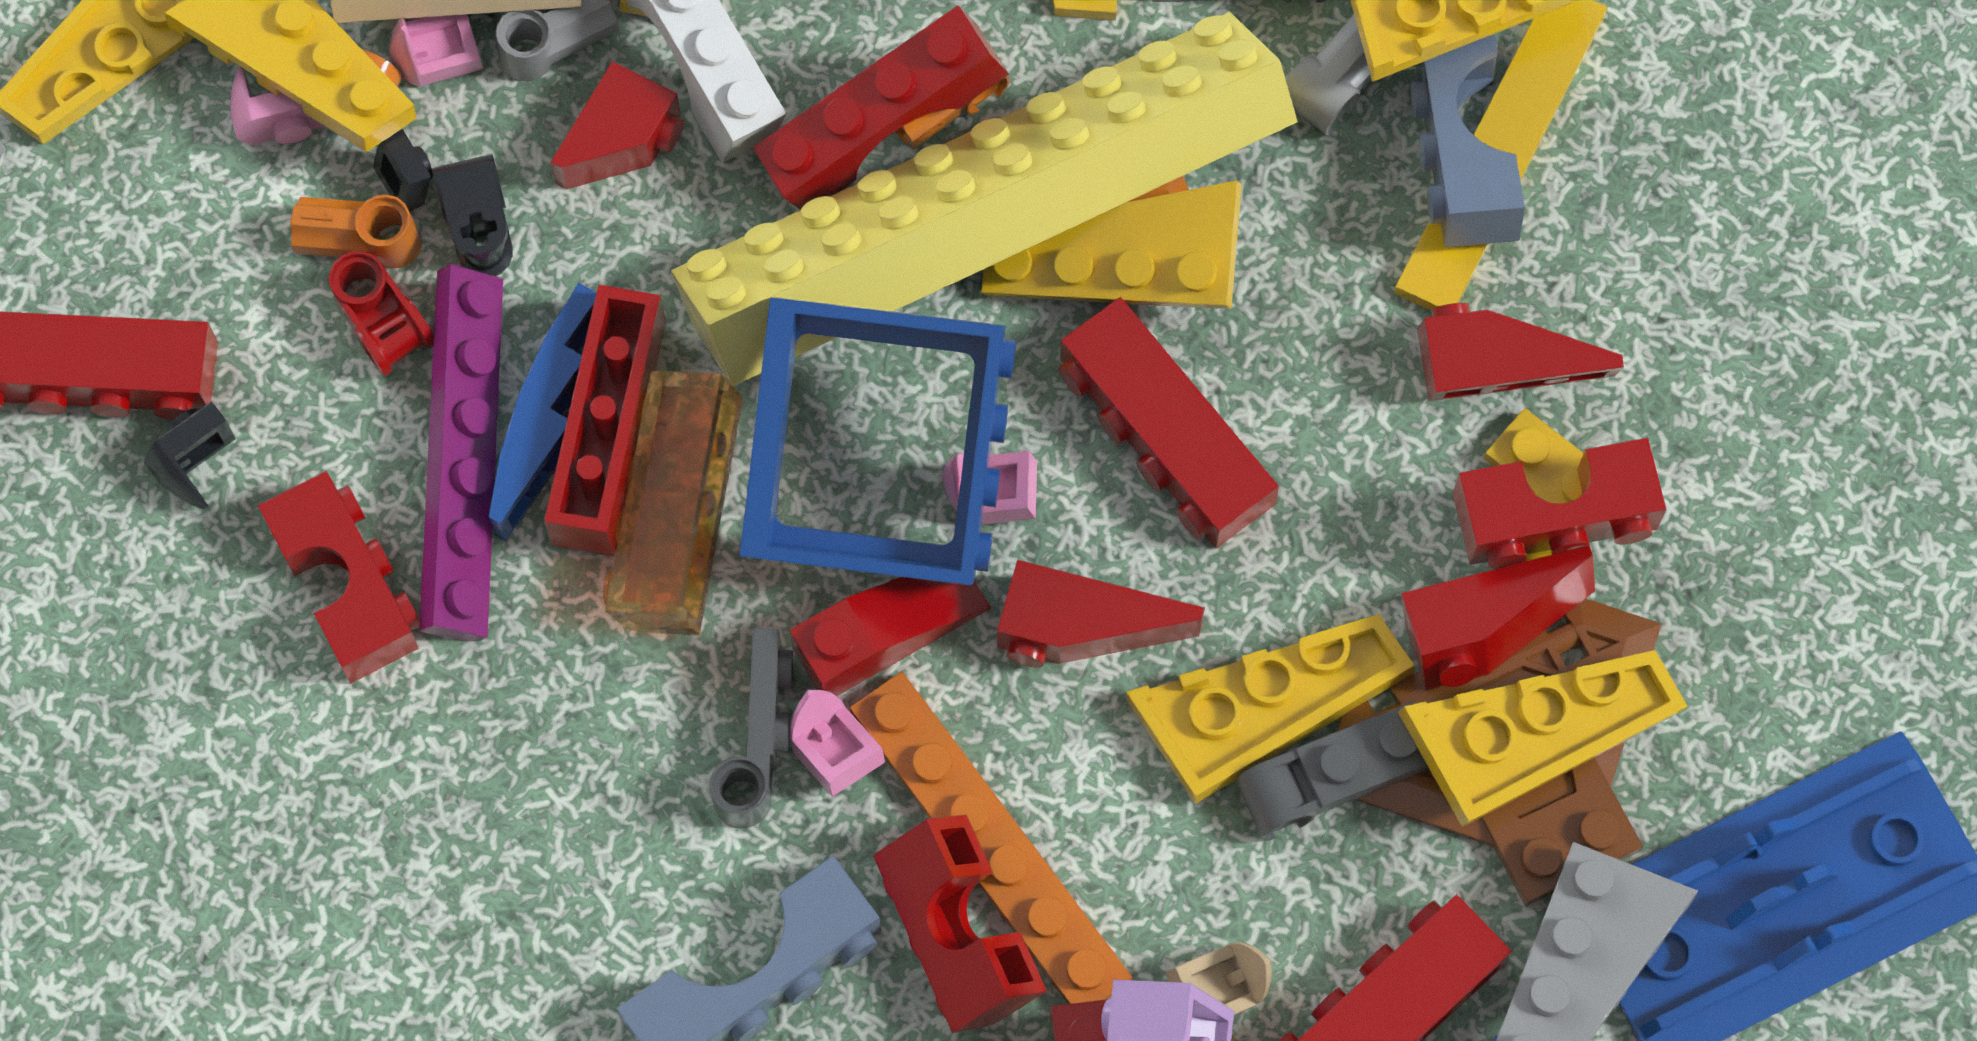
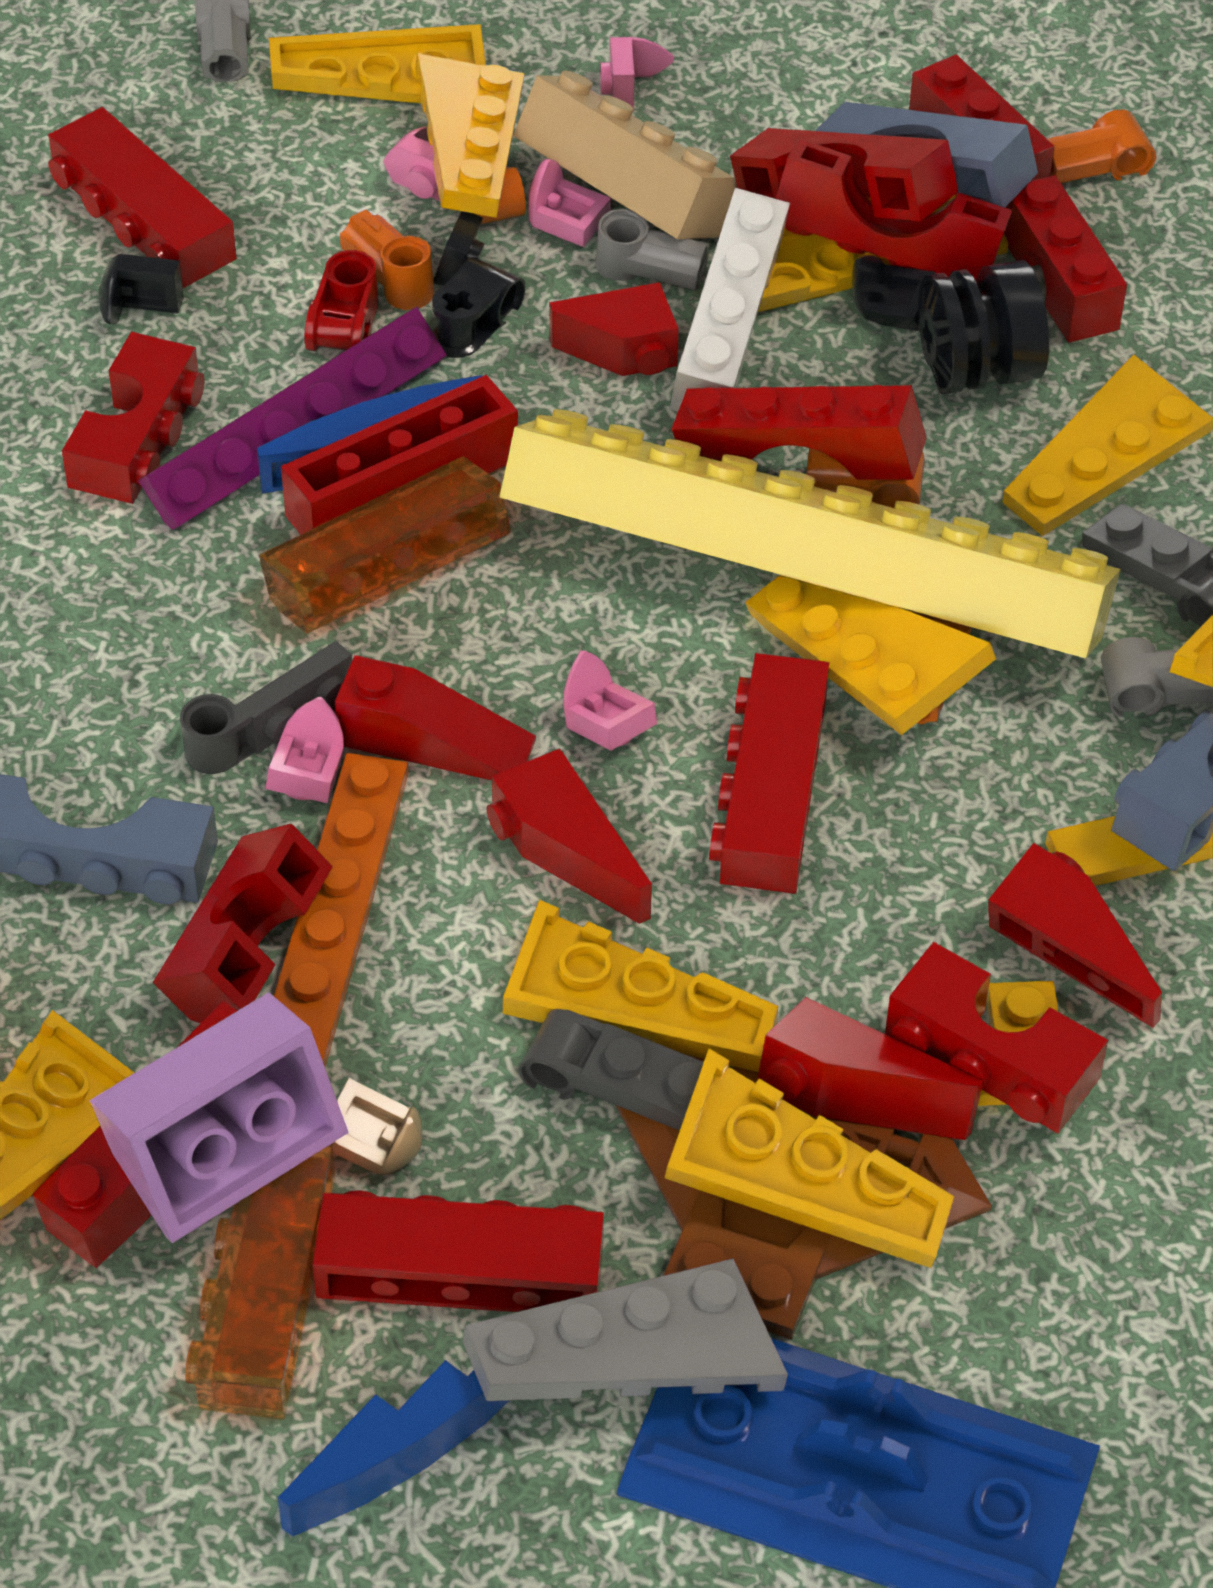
camera: 45 degrees right, 20 degrees down
(950, 562) = (489, 515): blue piece -> none

